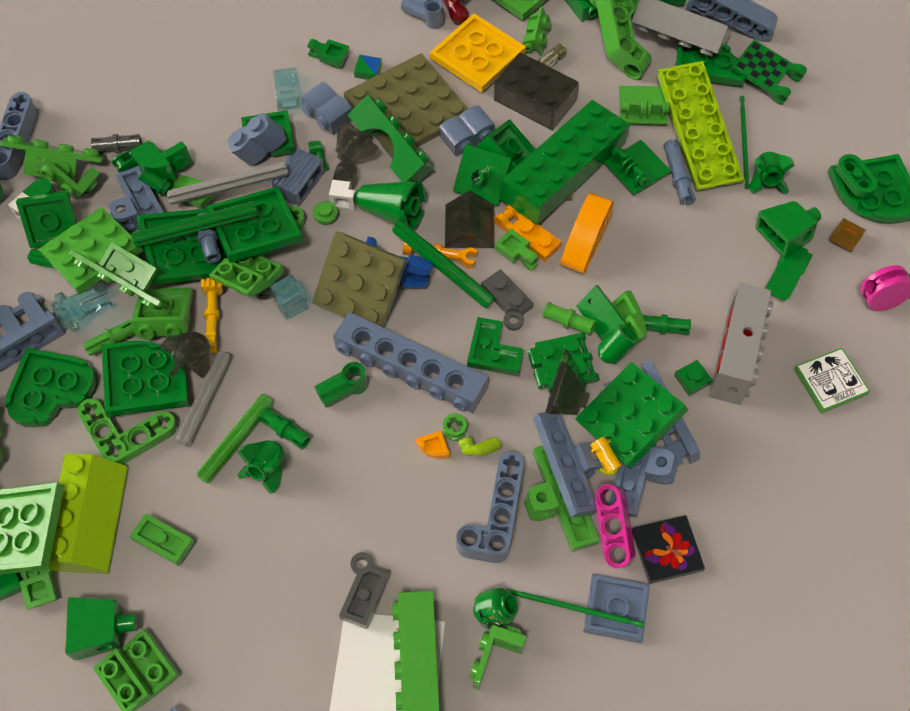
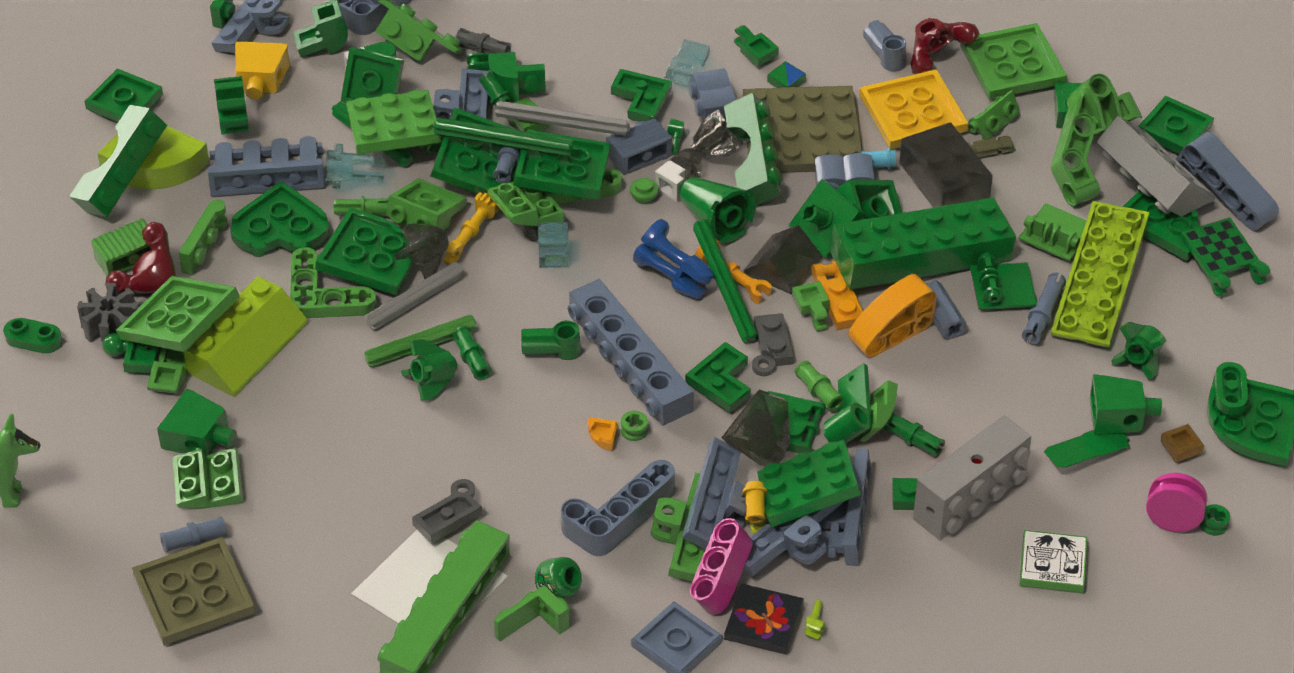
camera: 30 degrees right, 15 degrees down
(85, 183) = (429, 65): bright green bracket -> none
(126, 269) = (412, 147): bright green bracket -> none
(162, 539) = (298, 388): bright green plate -> none
(256, 139) = (618, 91): sand blue brick -> none
(359, 279) = (628, 254): olive plate -> none
(479, 449) = (645, 453): lime arm -> none
(486, 102) = (883, 158): none -> medium azure pin
(577, 608) = (636, 618): green piece -> none
(621, 214) = (946, 315): none -> sand blue axle
(707, 536) = (814, 626): none -> lime hand
(744, 143) = (1147, 310): green piece -> none

